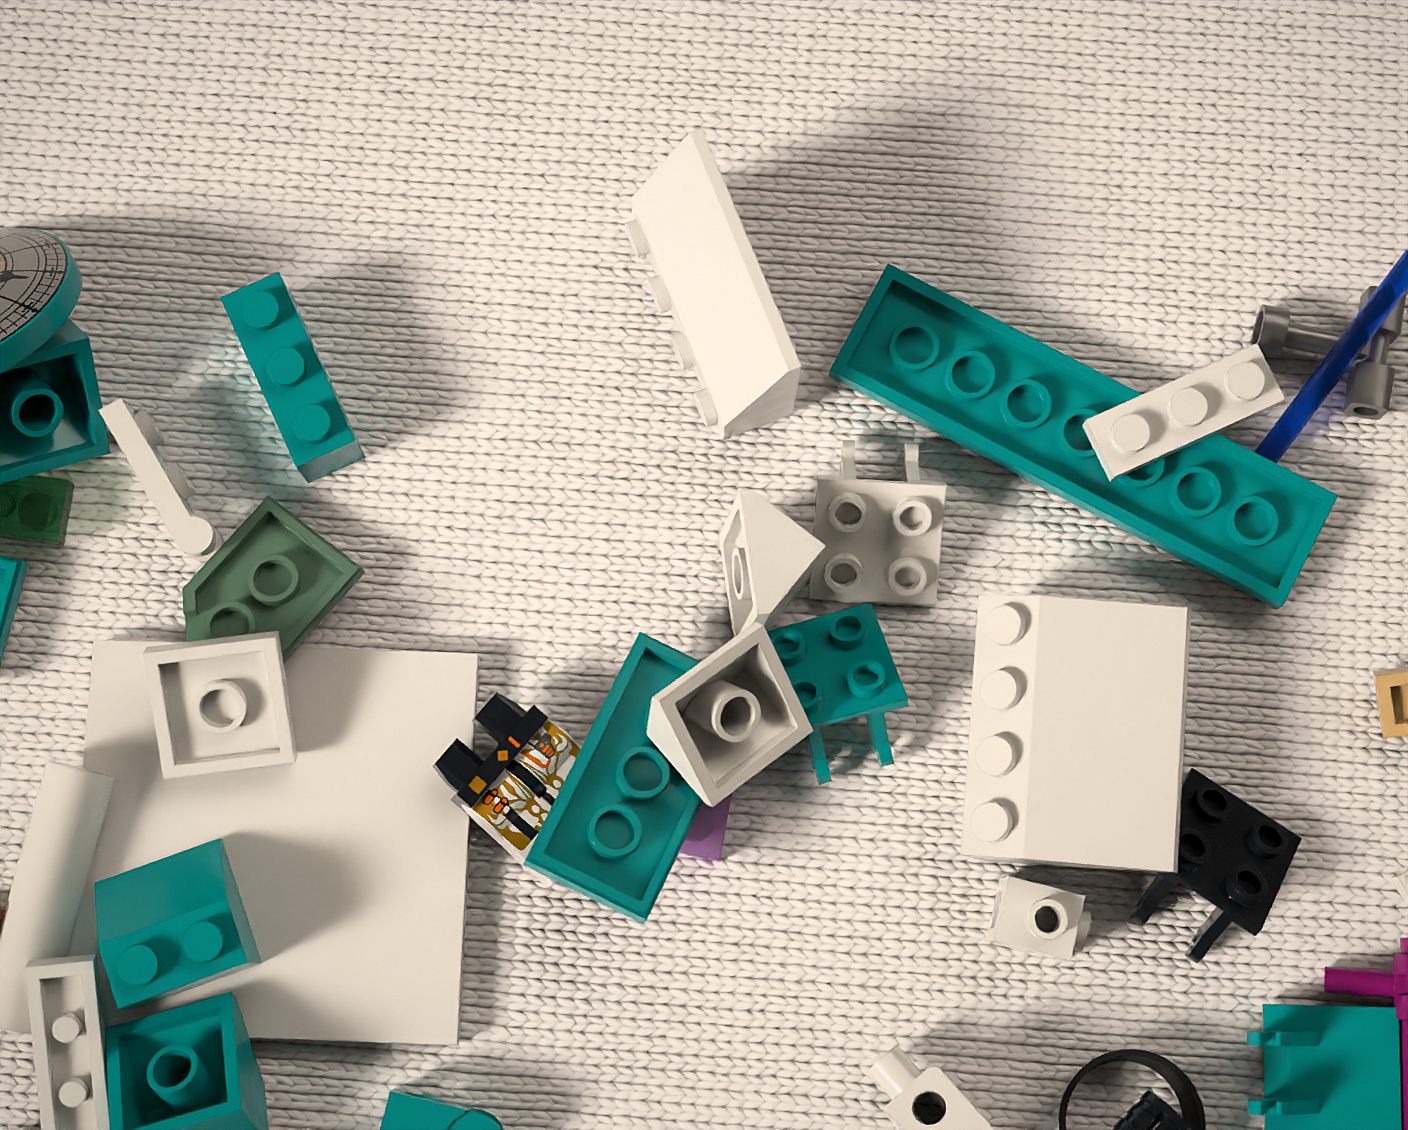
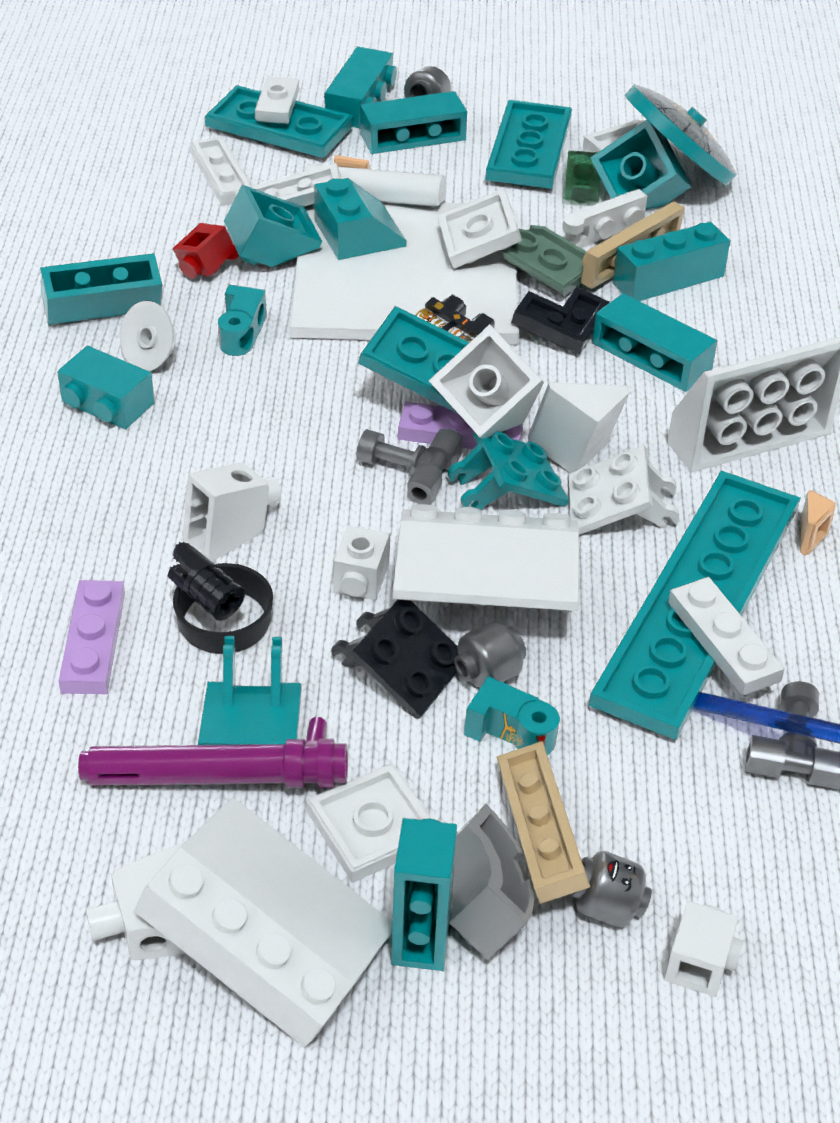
camera: 90 degrees right, 35 degrees down
(258, 457) = (600, 260): none -> tan plate
(458, 570) = (564, 325): none -> black plate
(506, 430) = (654, 341): none -> teal brick
(807, 818) = (424, 463): none -> flat silver bar
(934, 253) = (815, 521): none -> light nougat slope
(1222, 738) = (490, 652): none -> flat silver head
(1317, 713) = (511, 716): none -> teal leg

